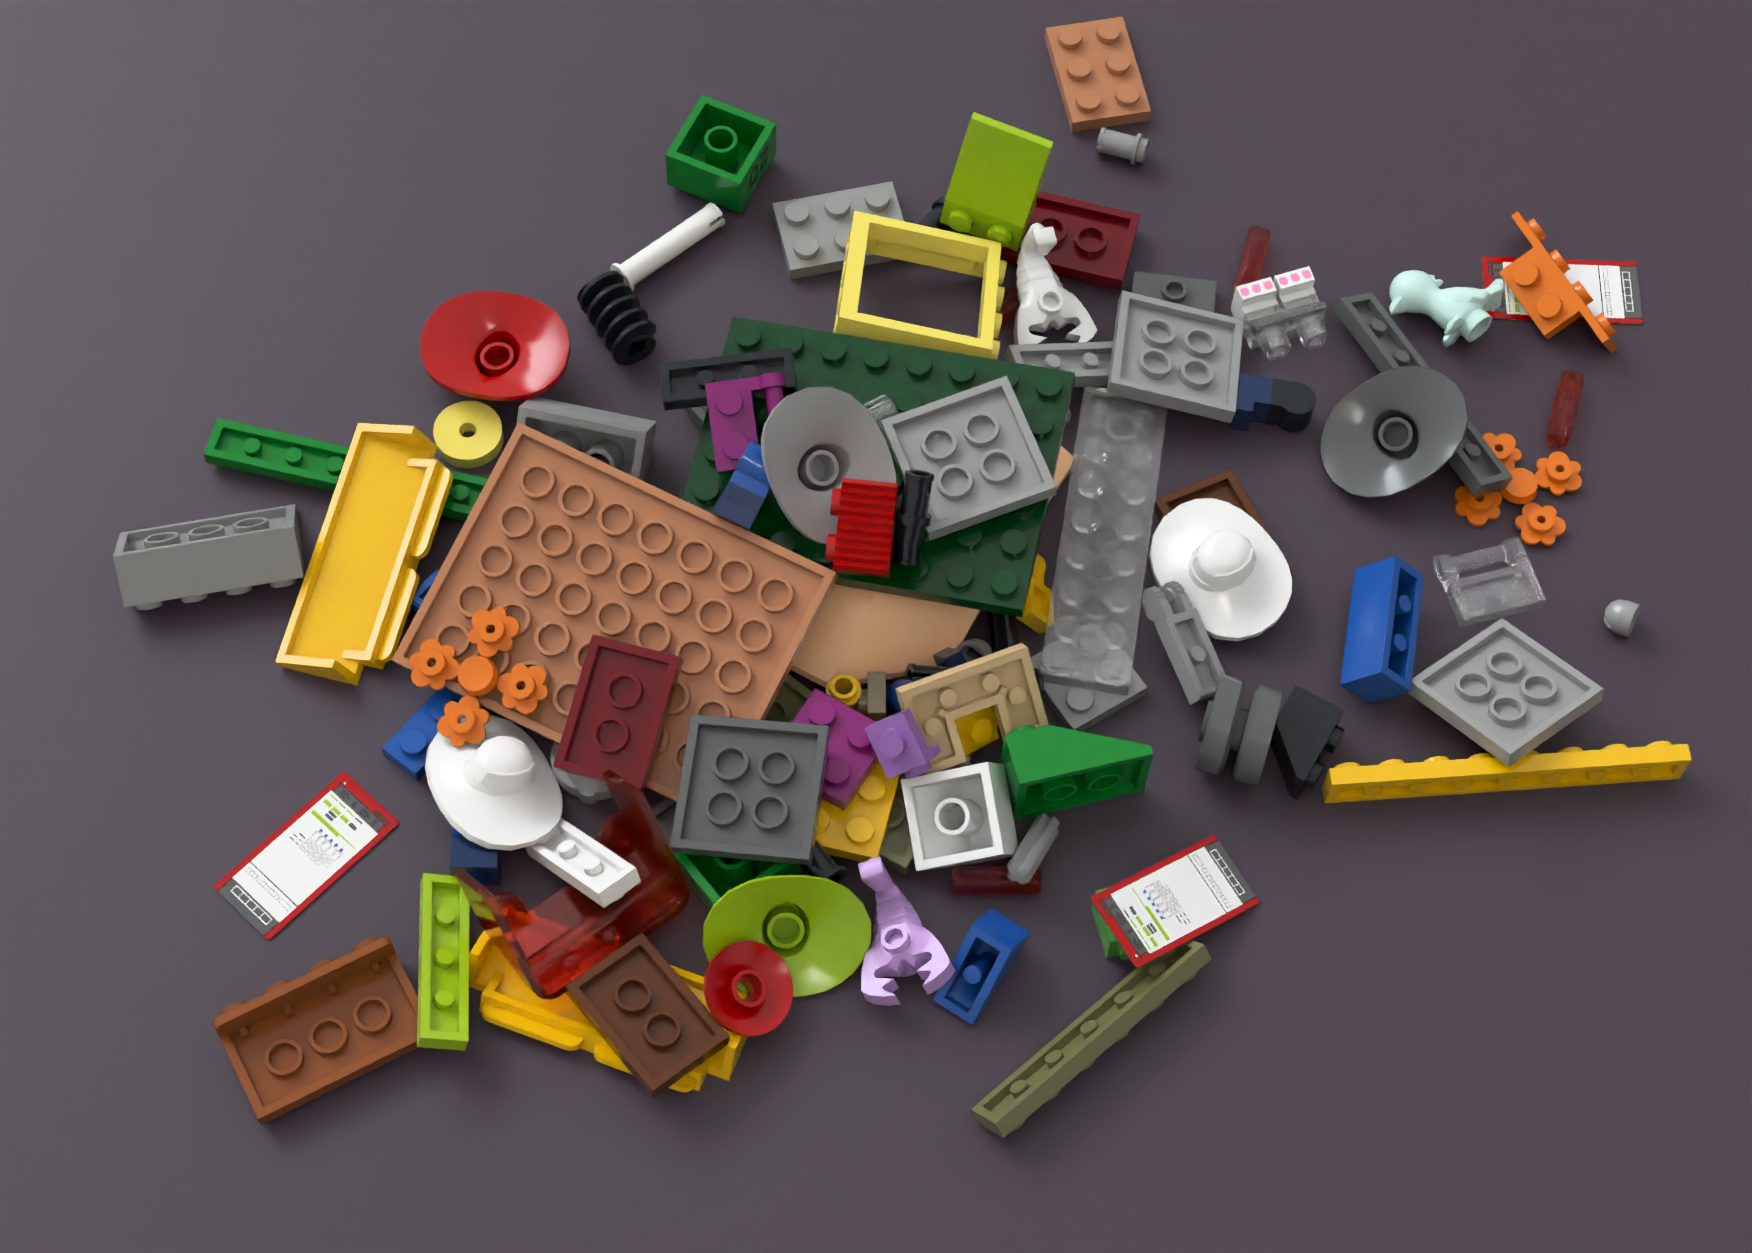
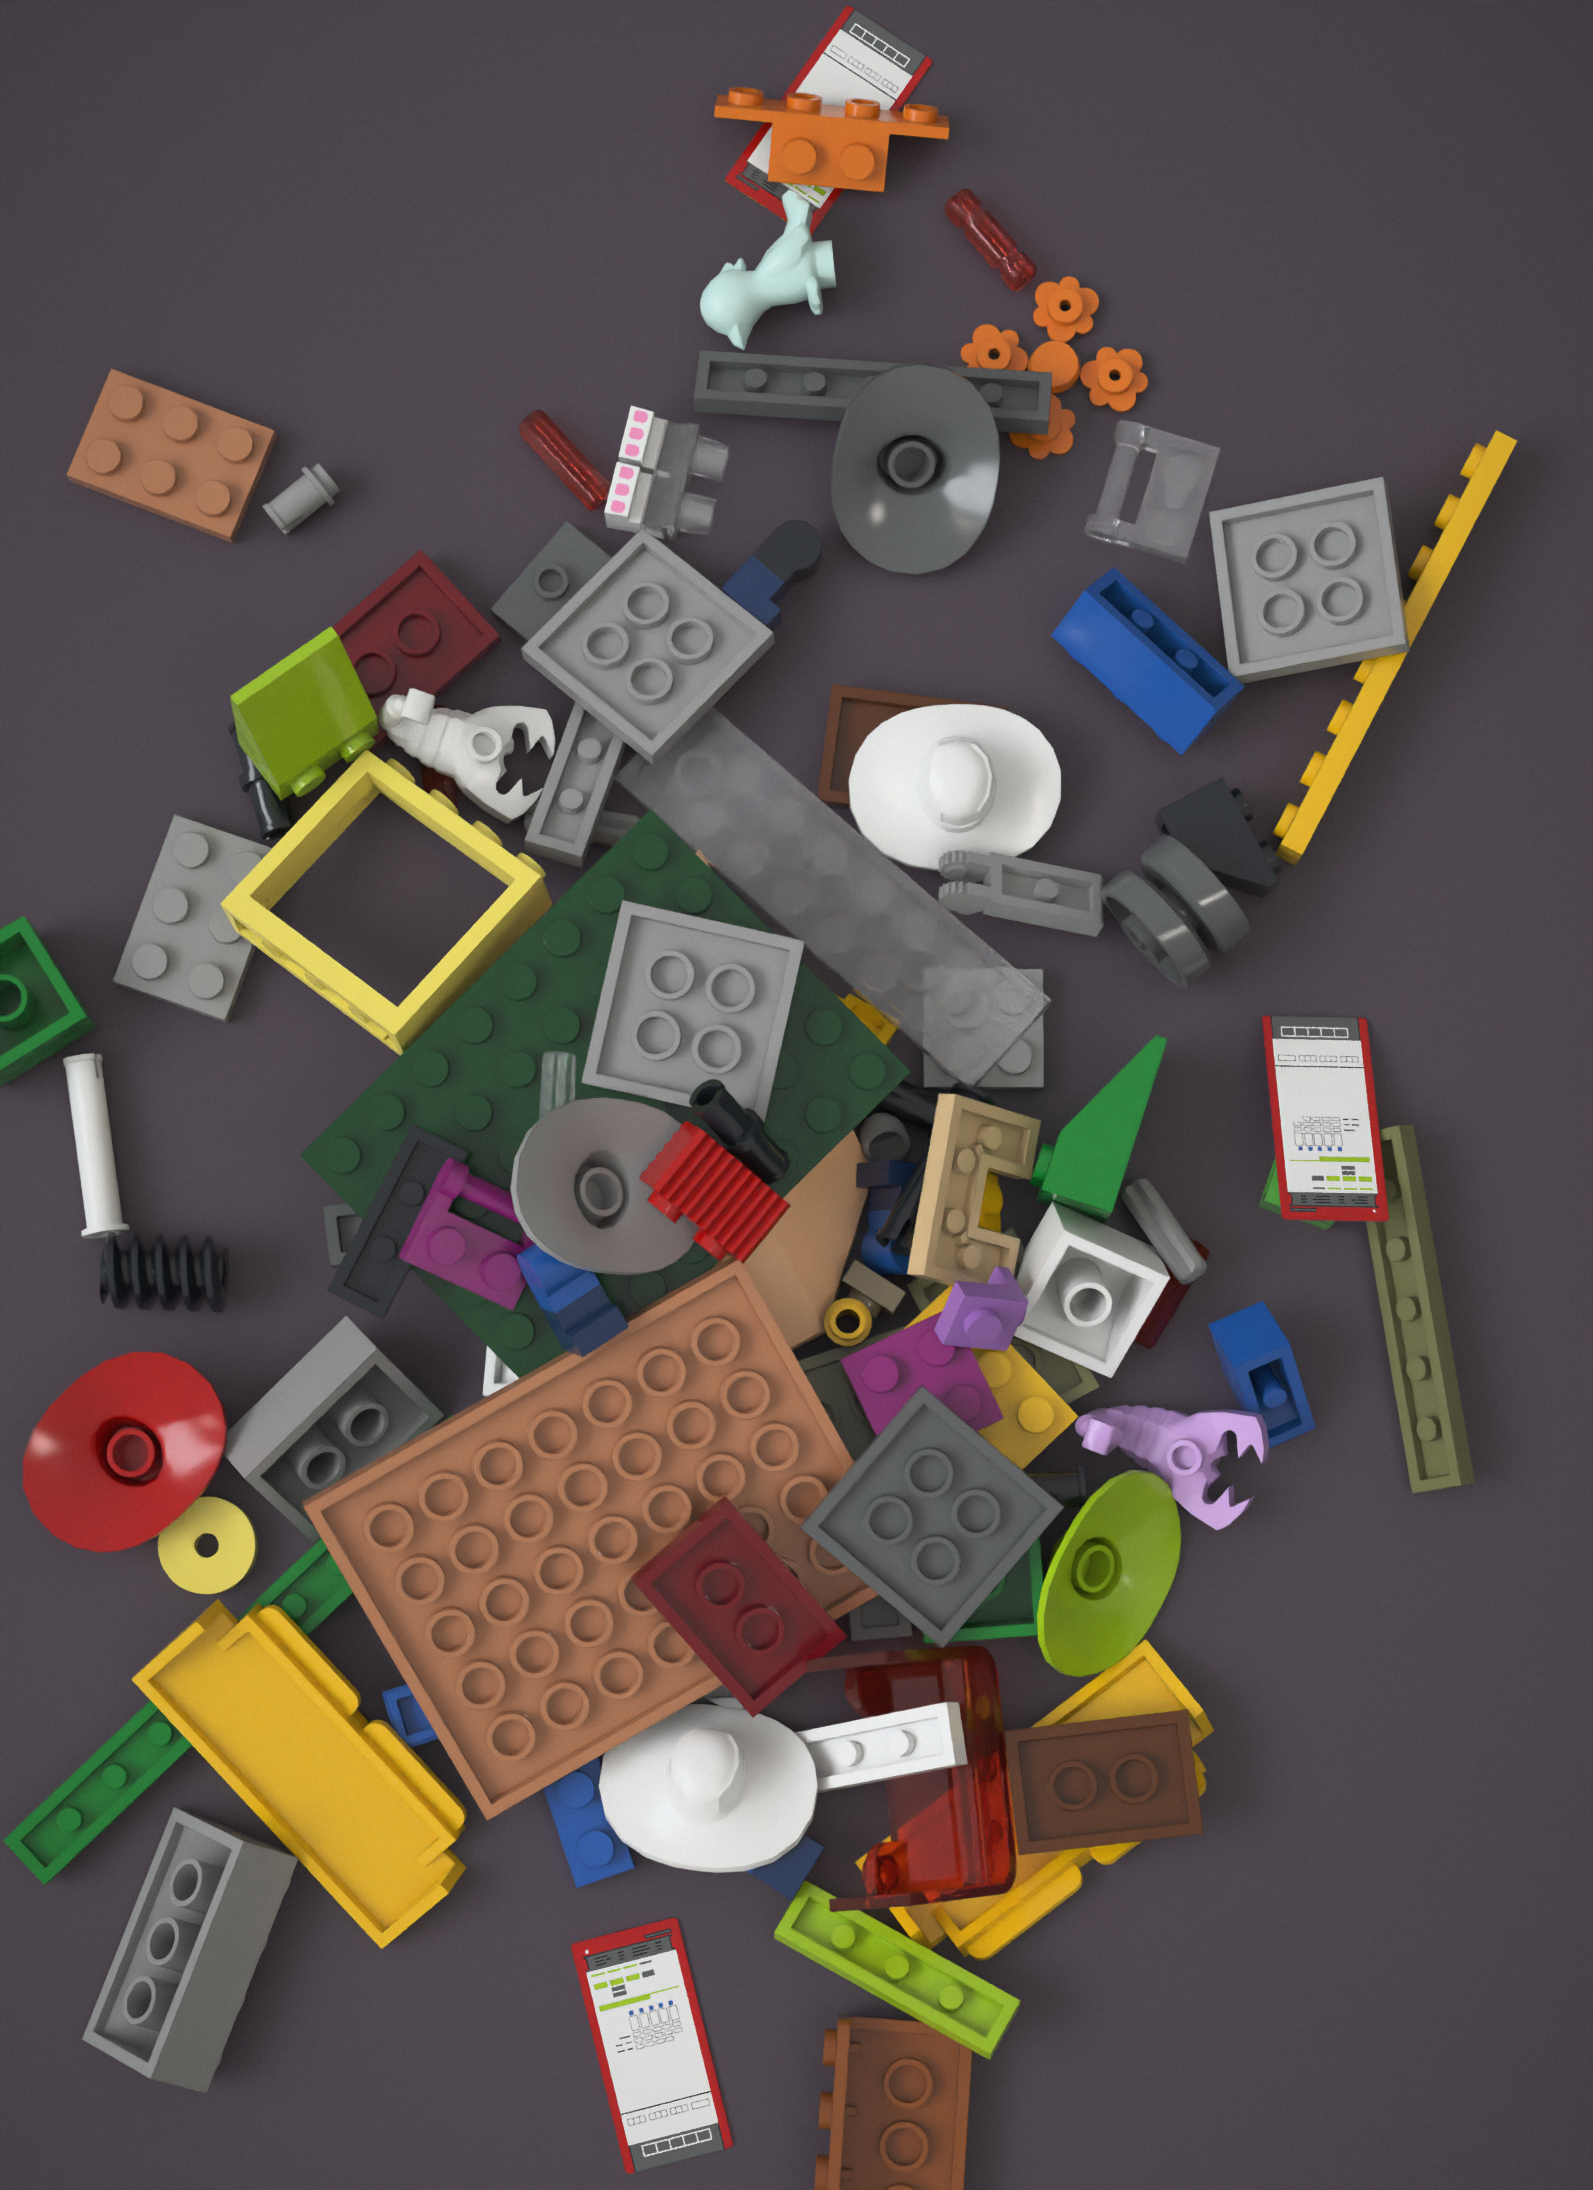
camera: 55 degrees left, 20 degrees up
(478, 676) = (579, 1734): orange plant -> none
(767, 987) = (1163, 1645): red dish -> none
(1621, 616) = (1288, 376): light grey hinge -> none

